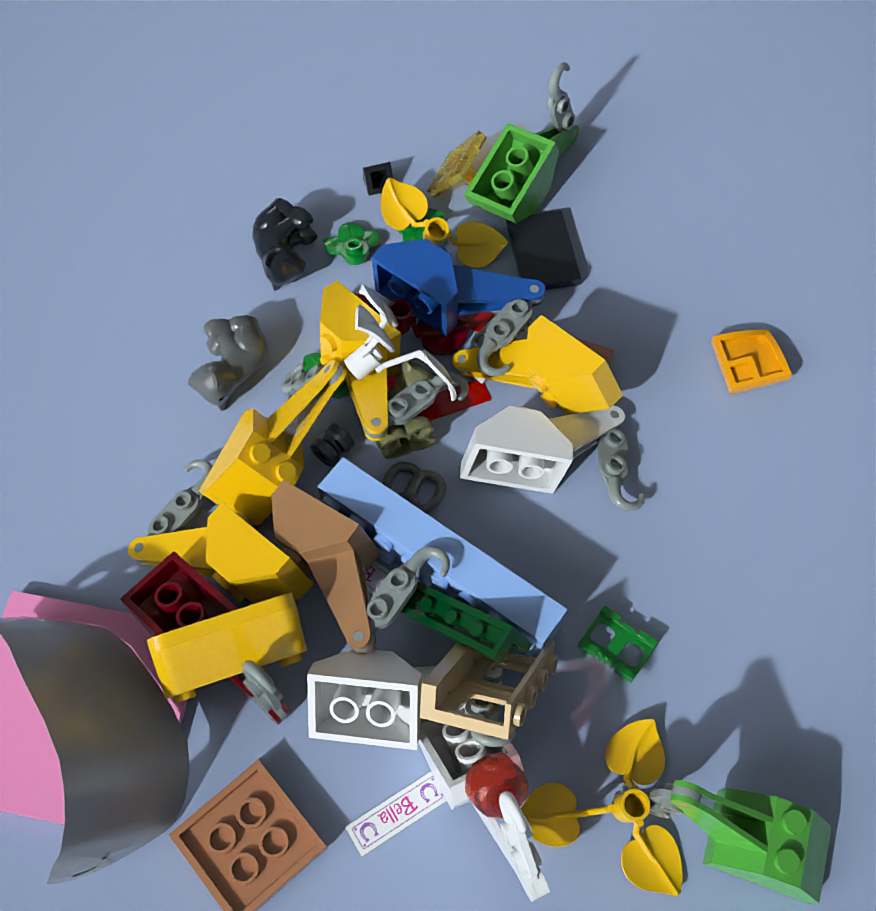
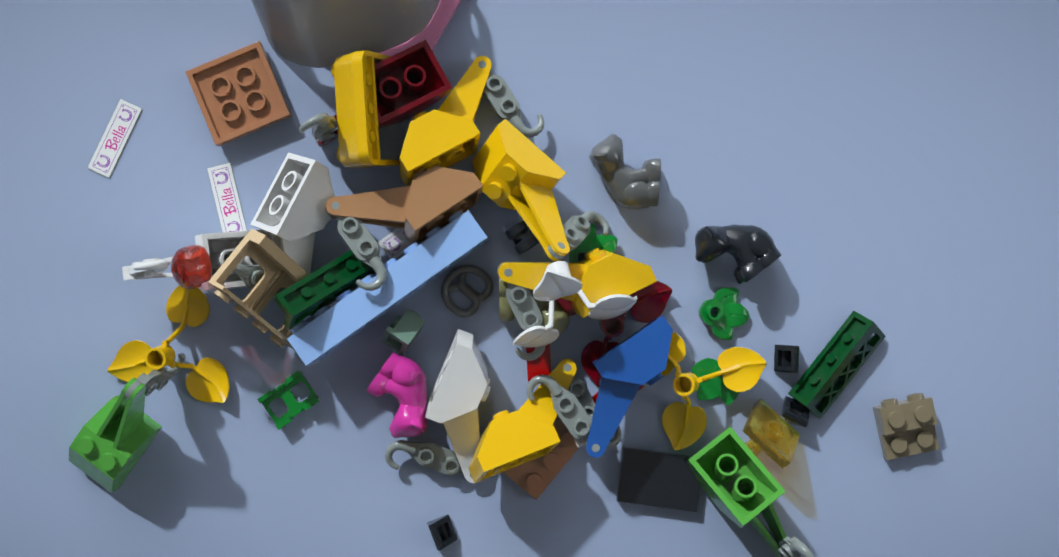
camera: 105 degrees right, 25 degrees up
(368, 141) = (835, 362): none -> dark green fence
(407, 77) = (906, 426): none -> dark tan plate
(429, 159) = (794, 412): none -> black slope
(486, 531) = (403, 331): none -> sand green brick
(542, 511) = (407, 383): none -> dark pink animal
(692, 432) = (442, 532): none -> black slope

